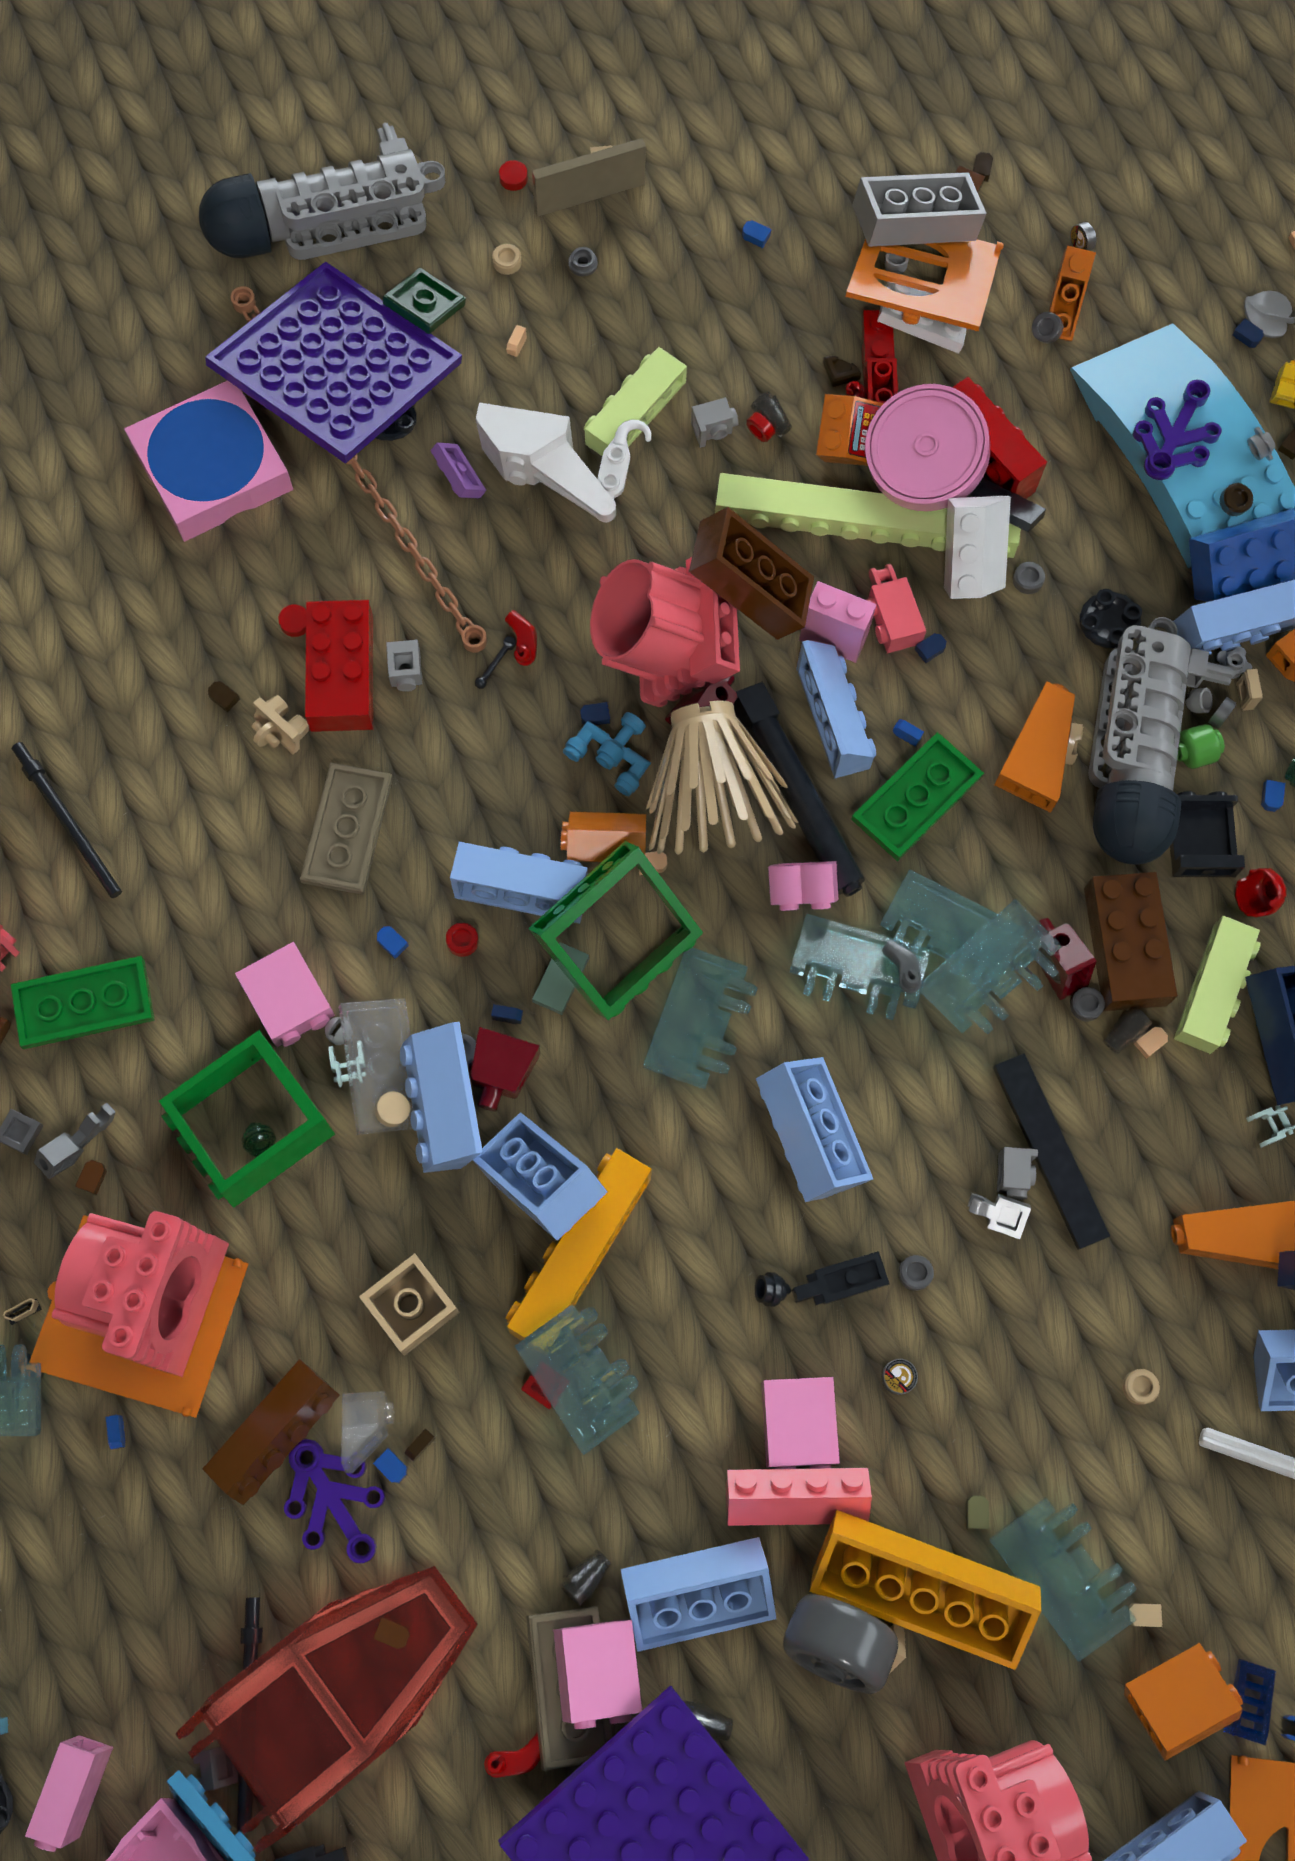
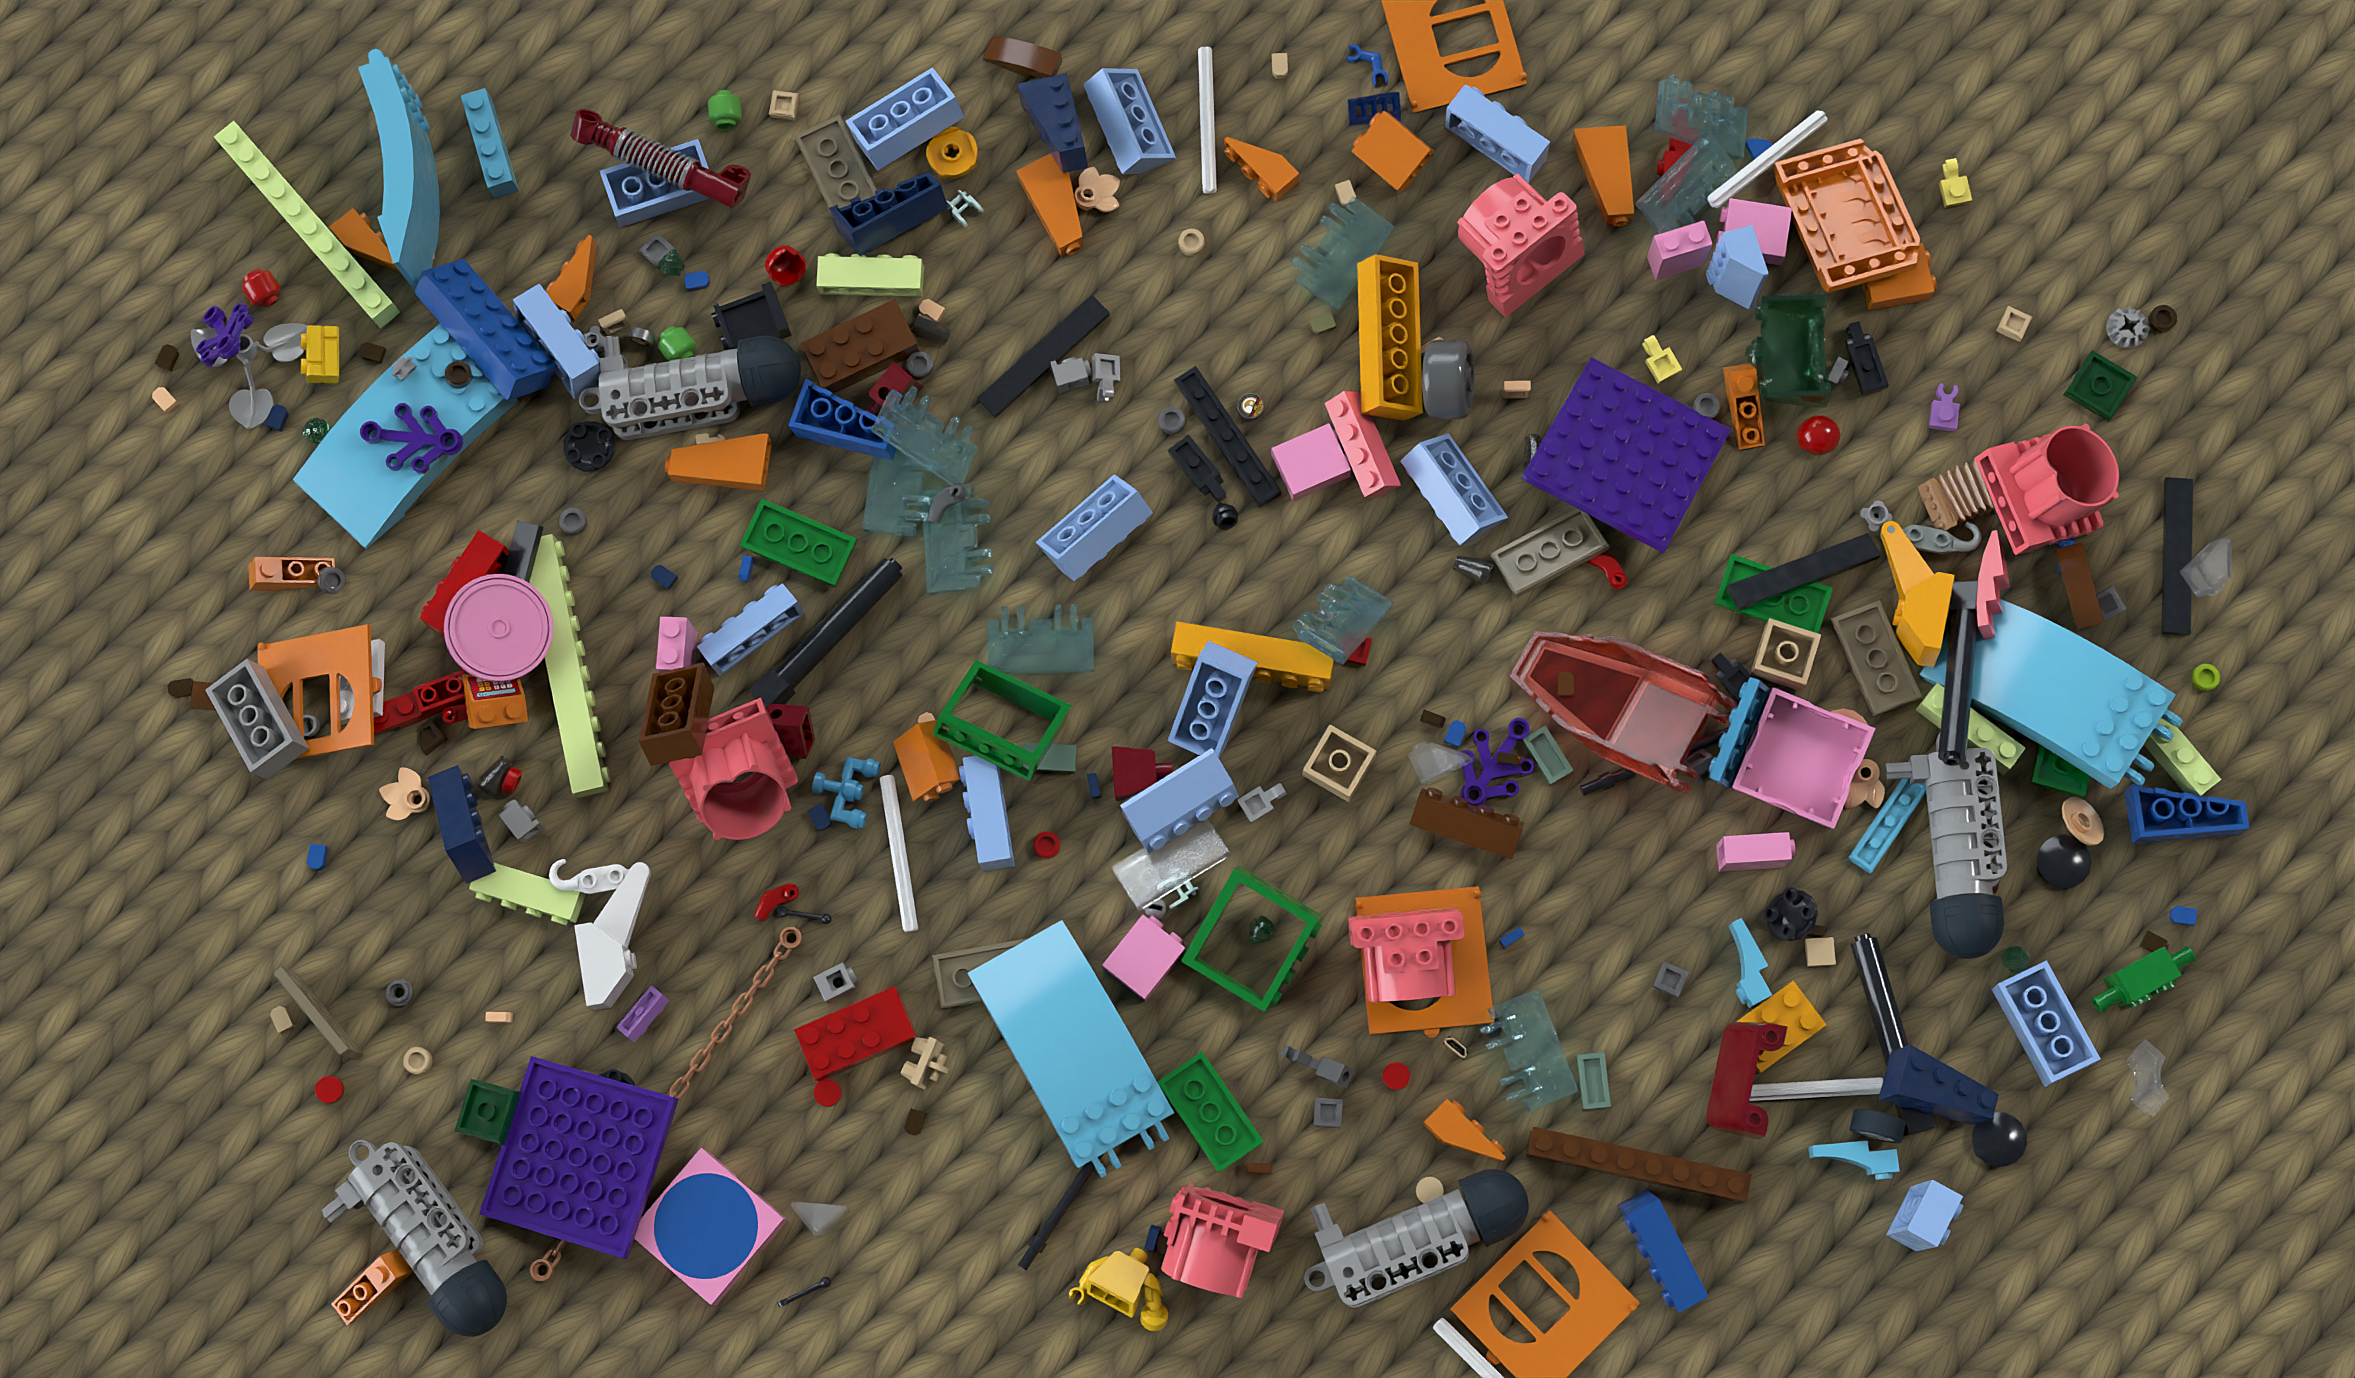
camera: 100 degrees left, 5 degrees up
(23, 1227) = (1396, 1076): none -> red tile
(91, 1177) = (1339, 1043): reddish brown piece -> none
(101, 553) = (824, 1282): none -> black hinge
(170, 565) = (819, 1217): none -> clear slope
(219, 876) = (1072, 1046): none -> medium azure hinge
(300, 146) = (372, 1285): none -> orange slope
(315, 1572) = (1547, 755): none -> sand green tile
(326, 1518) = (1508, 759): none -> dark brown piece
(391, 941) = (1069, 898): blue piece -> none
(392, 1109) = (1202, 835): tan tile -> none
(405, 1193) = (1258, 803): none -> light grey plate
(520, 779) = (898, 853): none -> white axle
(597, 1673) = (1532, 533): bright pink brick -> none
(708, 745) = (856, 702): tan plant -> none
(728, 355) = (461, 824): none -> dark blue wedge
(788, 326) = (402, 794): none -> light nougat plate
(800, 1734) = (1516, 389): none -> light nougat tile
(803, 884) = (907, 600): bright pink brick -> none
(871, 1333) = (1227, 436): none -> black tile
(896, 610) = (642, 615): coral brick -> none
(976, 546) = (570, 565): white slope -> none
(1052, 874) = (836, 422): none -> blue wedge
(1083, 236) = (230, 578): tile -> none
(1199, 700) = (636, 356): light grey hinge -> none
(1211, 1522) = (1267, 168): none -> orange slope
(1223, 359) = (315, 430): none -> clear green plate
(1245, 1299) = (1099, 188): none -> light nougat plate

